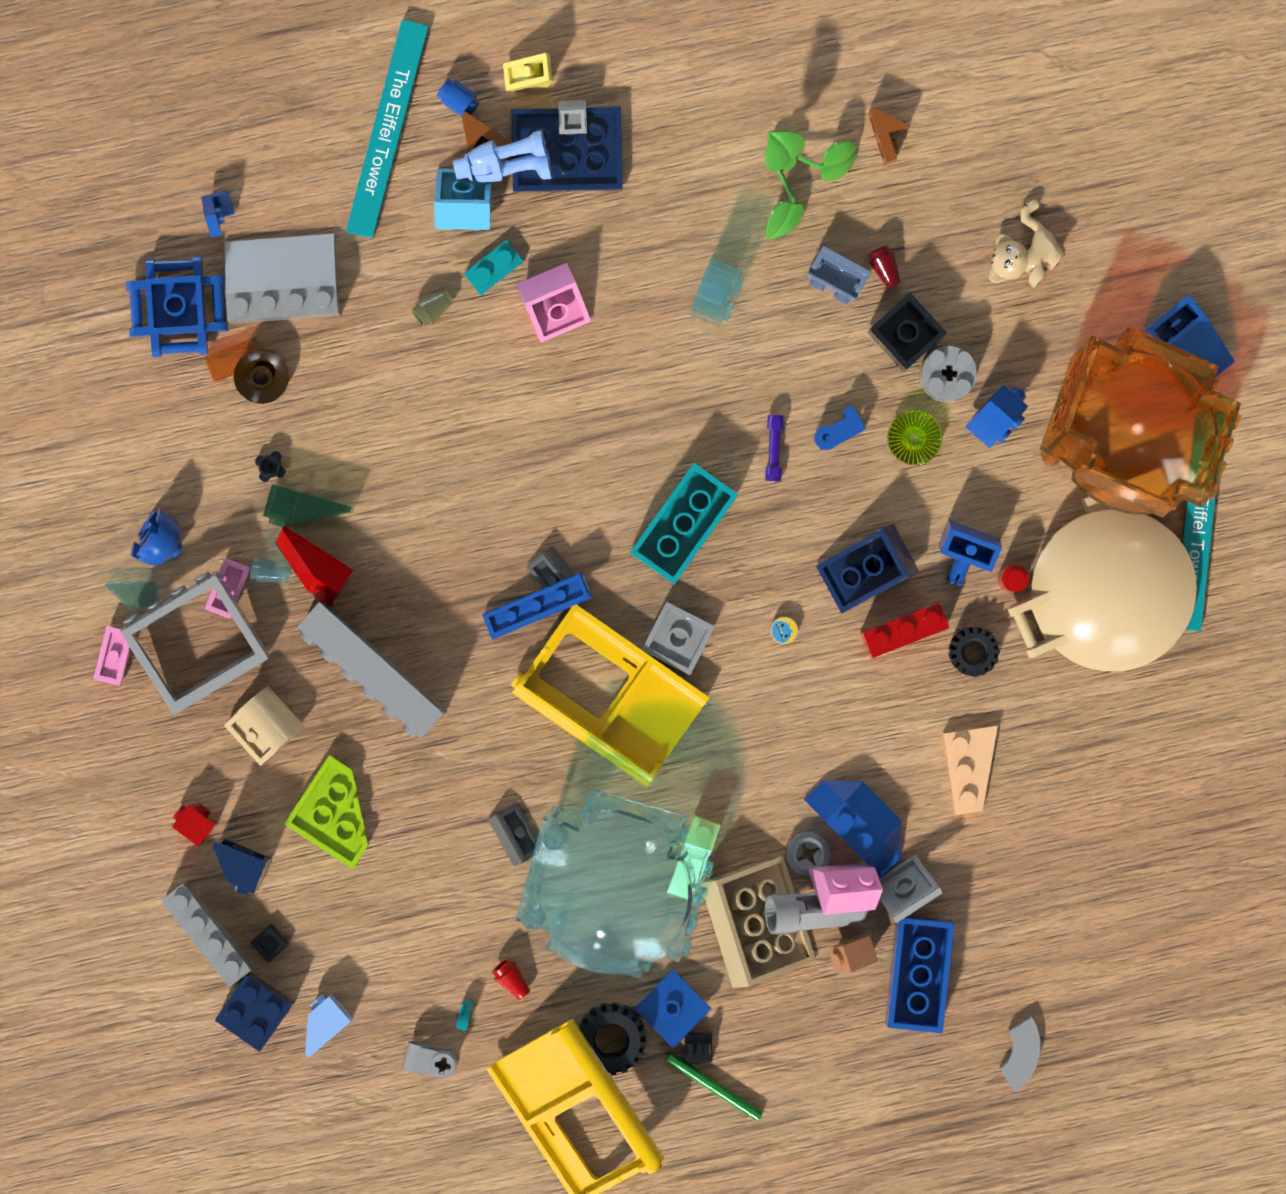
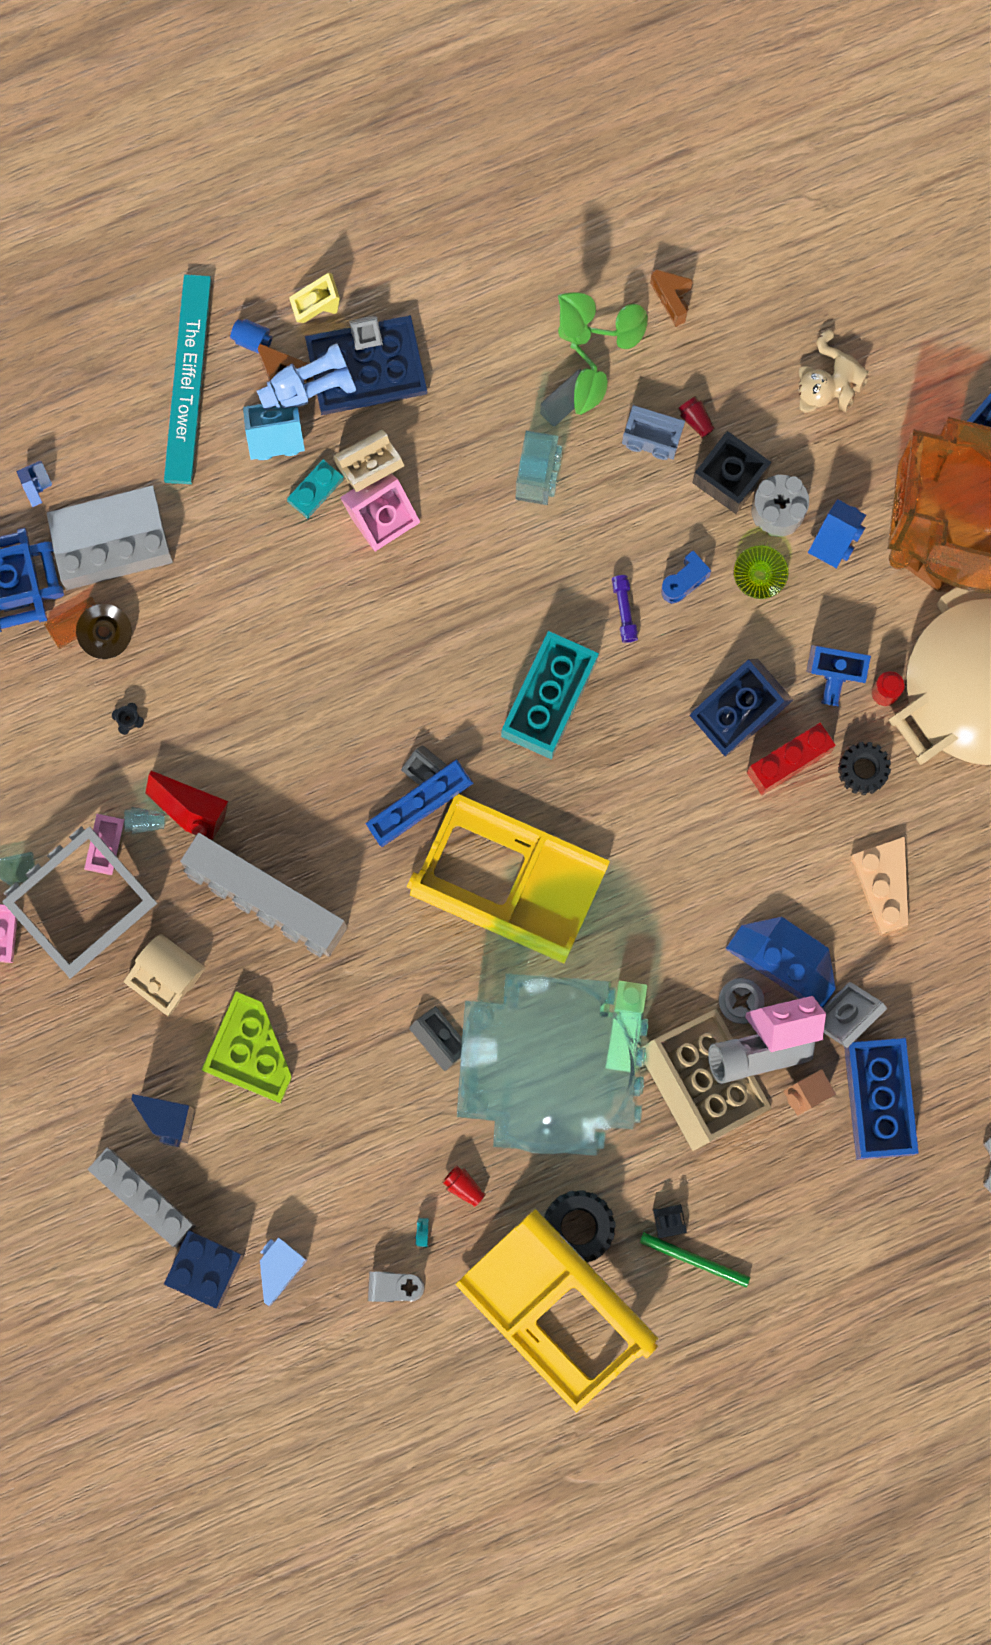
camera: 10 degrees left, 10 degrees down
(158, 539) = (27, 808): blue cylinder -> none
(194, 823) = (109, 1086): red brick -> none
(269, 943) = (208, 1197): black tile -> none
(297, 507) = (165, 751): clear green slope -> none
(432, 307) = (260, 537): olive cone -> none
(550, 254) = (368, 461): none -> tan brick
(673, 1008) = (636, 1185): blue plate -> none
(678, 638) = (566, 809): light grey plate -> none
(754, 224) = (560, 402): none -> dark grey slope
(784, 630) = (670, 783): tile -> none

